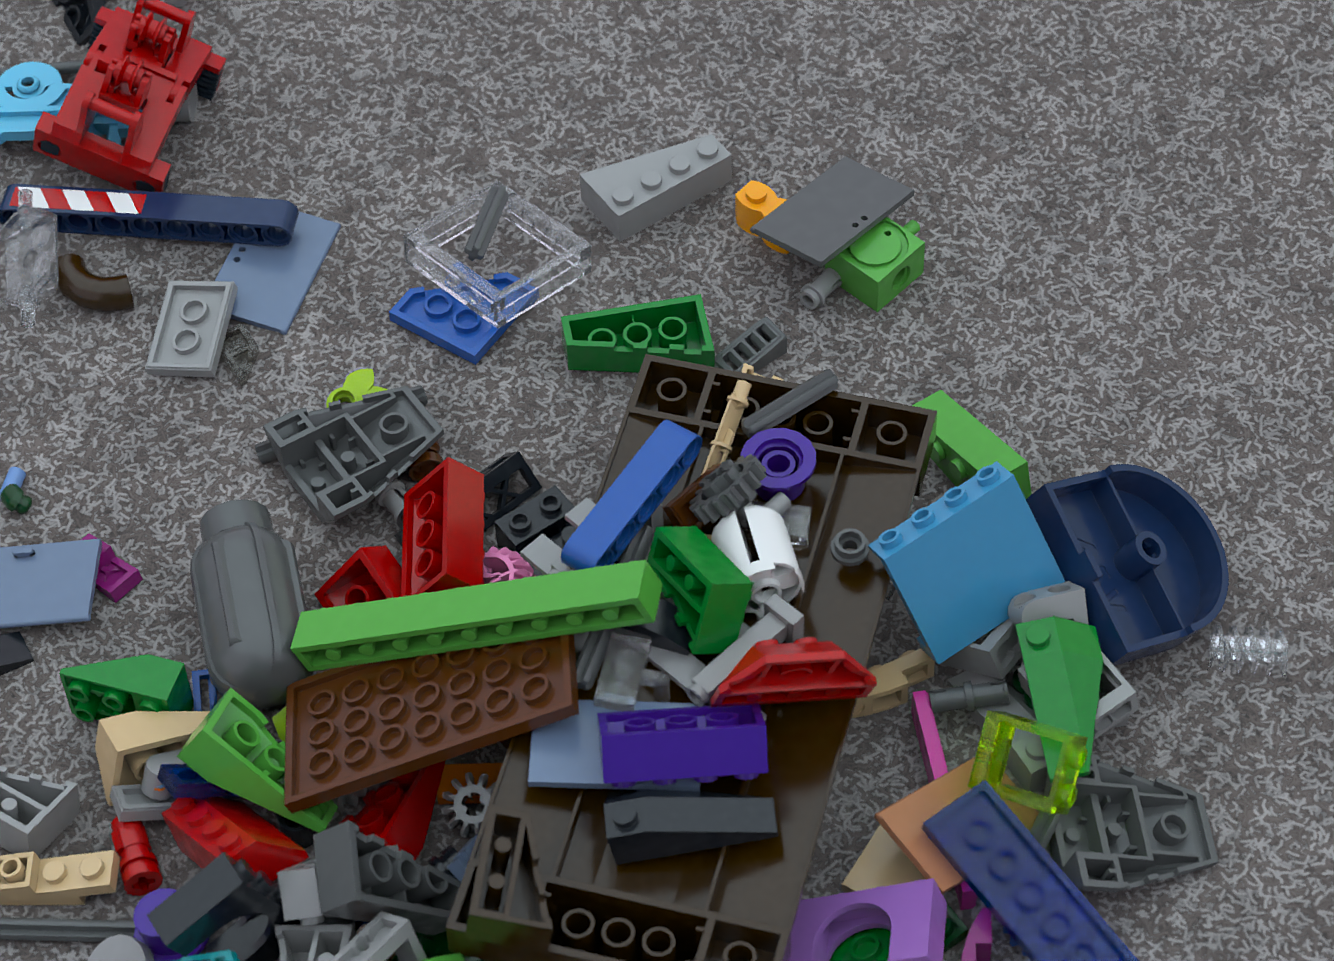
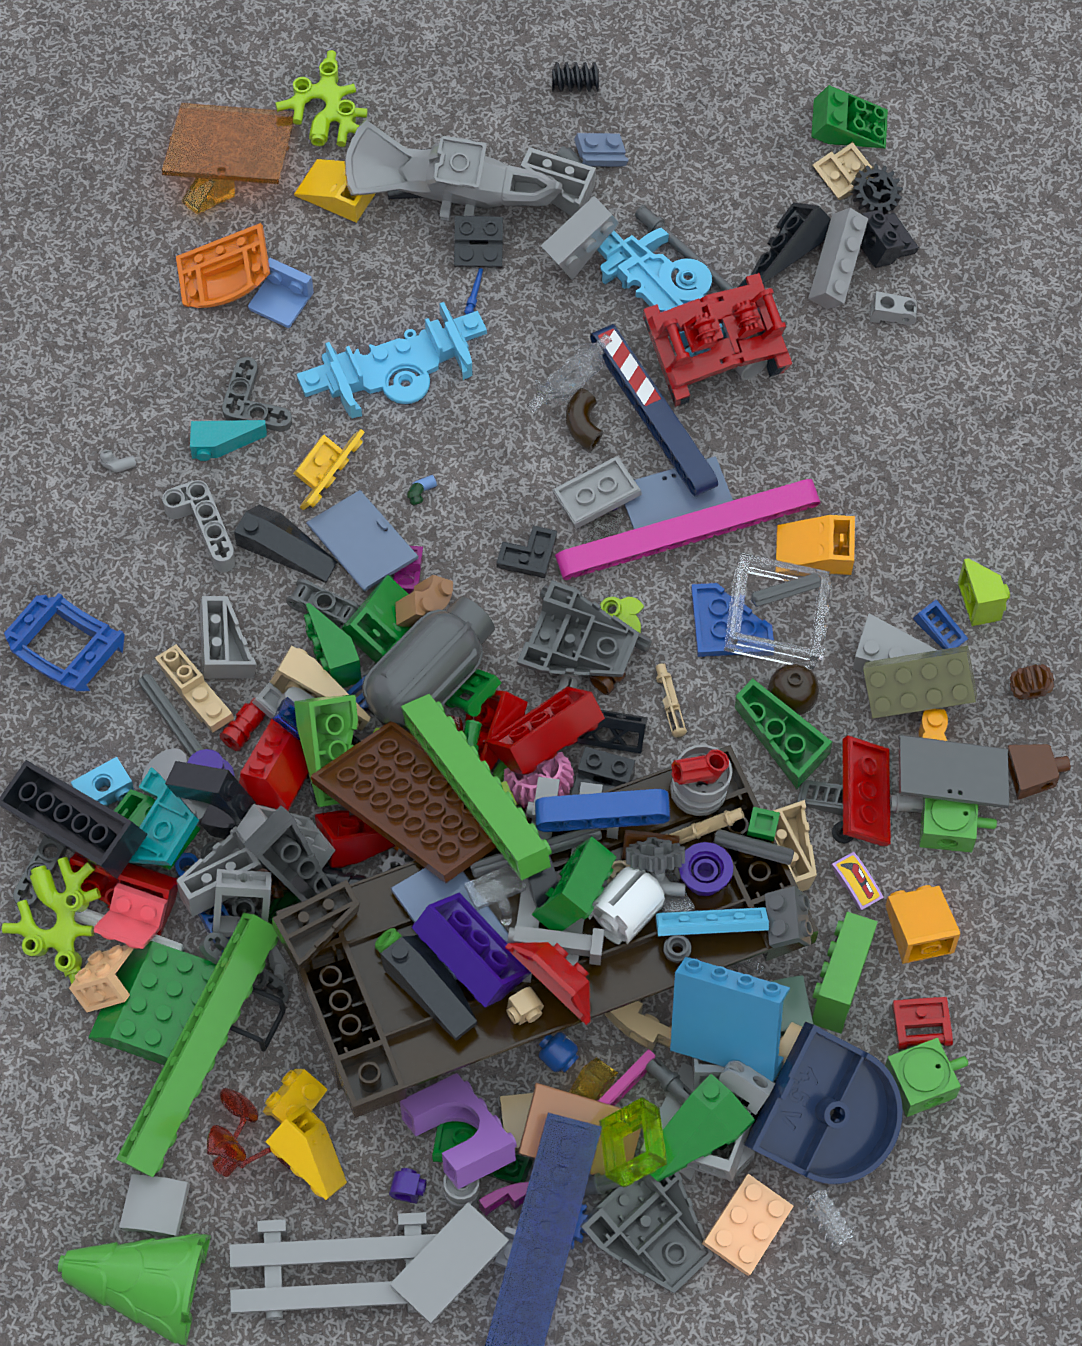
camera: 50 degrees right, 10 degrees up
(44, 677) = (306, 592): none -> dark grey piece
(147, 620) = (374, 622): none -> green slope
(164, 564) = (427, 596): none -> medium nougat brick
(208, 437) = (531, 559): none -> black plate
(316, 279) = (687, 529): none -> dark pink beam
(326, 573) = (479, 686): none -> green plate
(453, 168) = (818, 543): none -> light orange slope
(506, 420) = (670, 701): none -> tan piece
(589, 831) = (387, 939): none -> bright green tile
(594, 291) = (795, 687): none -> dark brown cylinder
(626, 143) = (929, 627): none -> blue slope
(645, 71) = (982, 593): none -> lime slope
(672, 368) = (700, 768): none -> red piece
(675, 385) = (702, 799): none -> light grey wheel
(704, 175) = (920, 682): none -> olive piece
(771, 376) = (763, 823): none -> green plate
(778, 309) = (866, 791): none -> red tile
(784, 95) = (1031, 682): none -> reddish brown gear
(797, 737) = (524, 1006): none -> tan plate
(802, 363) = (837, 833): none -> black piece
(847, 494) = (712, 921): none -> medium azure tile
(847, 791) = (558, 1052): none -> blue head
(874, 382) = (857, 880): none -> slope
(883, 149) = (1034, 768): none -> reddish brown torso
(901, 424) = (788, 917): none -> dark grey bracket
(903, 771) = (594, 1080): none -> clear yellow slope
(974, 355) = (922, 923): none -> light orange slope
(1074, 425) = (921, 1014): none -> red plate
(1156, 446) = (925, 1076): none -> bright green piece
(1194, 736) = (747, 1225): none -> light nougat plate

